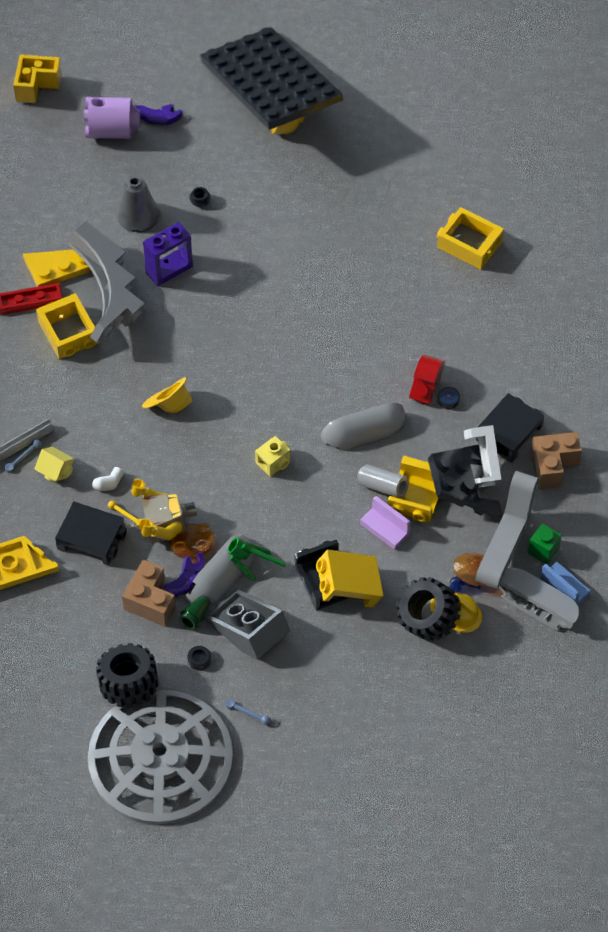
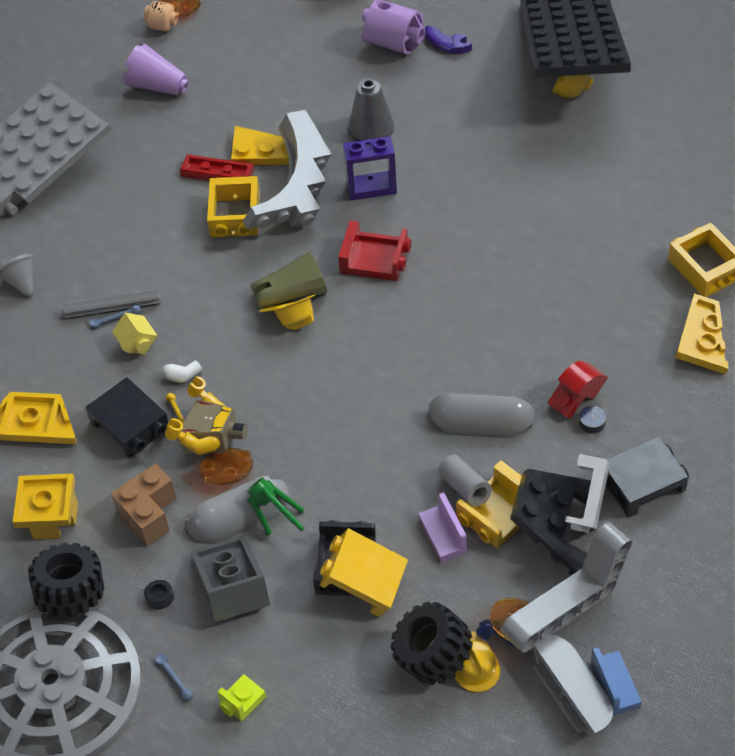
camera: 30 degrees right, 5 degrees down
(71, 625) = (45, 504): none -> yellow panel
(156, 372) = (293, 281): none -> olive piece
(189, 572) = (186, 507): dark purple piece -> none
(195, 612) = (181, 543): dark green cone -> none
(200, 197) = (441, 128): black plate -> none
(207, 325) = (373, 253): none -> red panel
(273, 456) = (363, 409): light yellow brick -> none
(307, 705) = (241, 698): none -> neon yellow bracket
(495, 302) = (702, 335): none -> yellow wing
(544, 544) = (613, 624): green brick -> none
(553, 453) = (678, 523): medium nougat brick -> none

